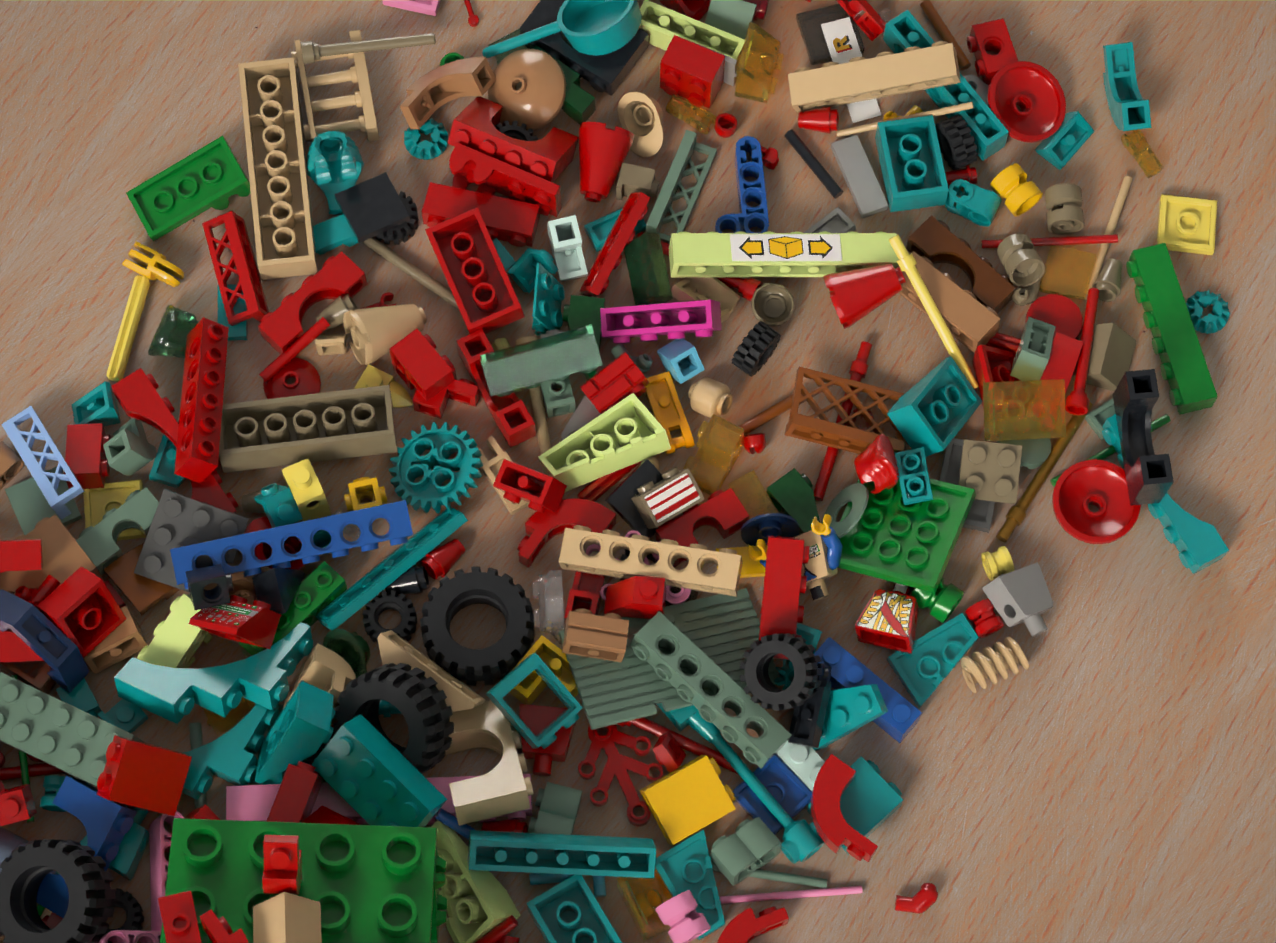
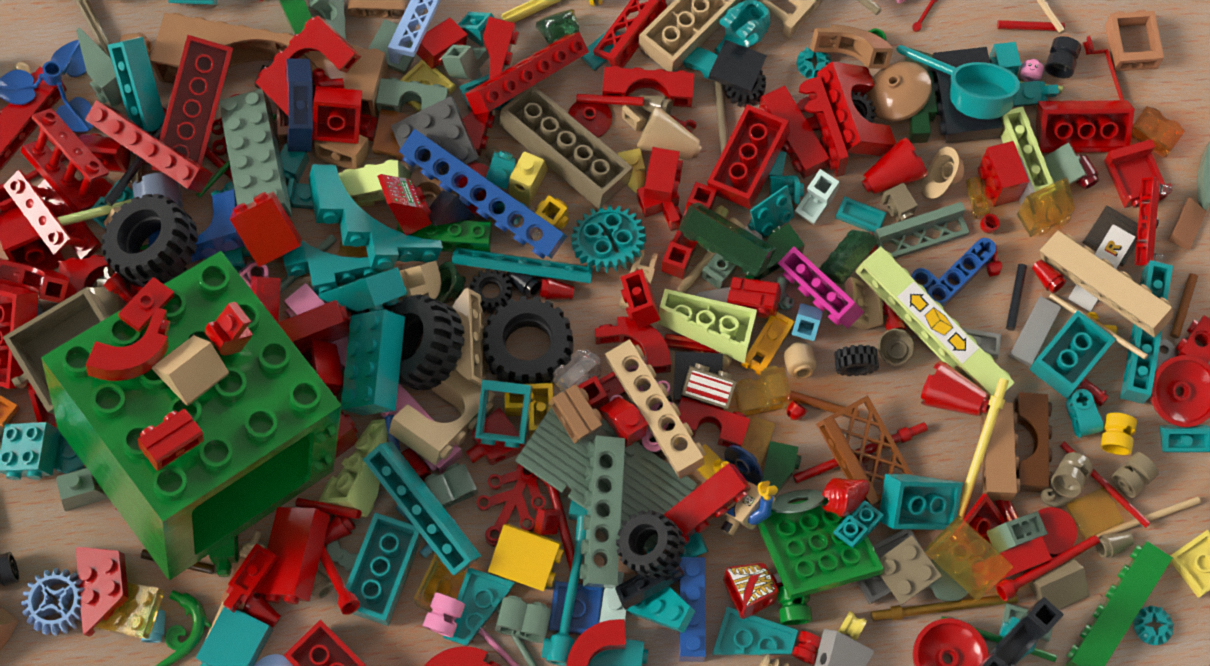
camera: 50 degrees right, 0 degrees up
(200, 578) = (401, 170): black brick -> none
(620, 235) = (856, 221): red plate -> none
(956, 142) = (1113, 369): black tyre -> none

